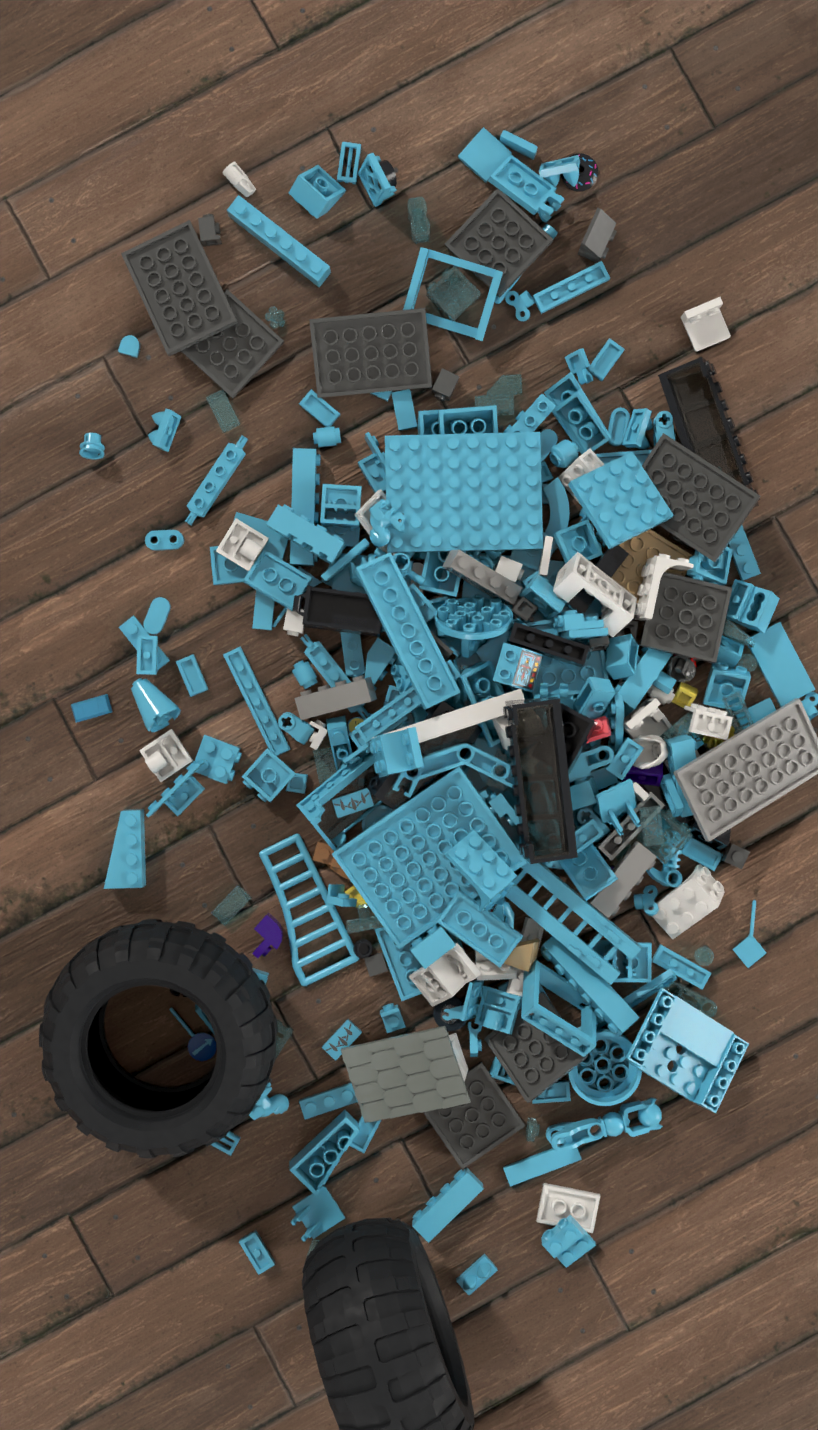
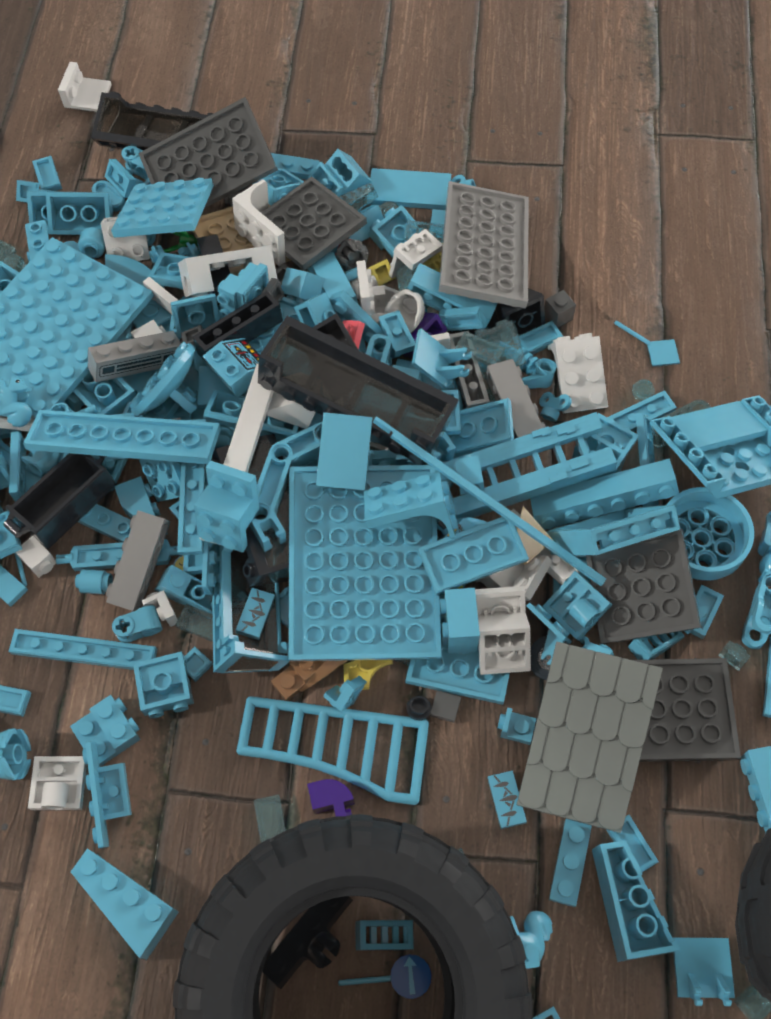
camera: 55 degrees left, 25 degrees down
(364, 922) = (389, 684): clear light blue tile -> none
(491, 800) = (344, 451): none -> medium azure tile
(519, 921) = (491, 503): none -> medium azure piece
(535, 890) = (469, 468): none -> medium azure brick

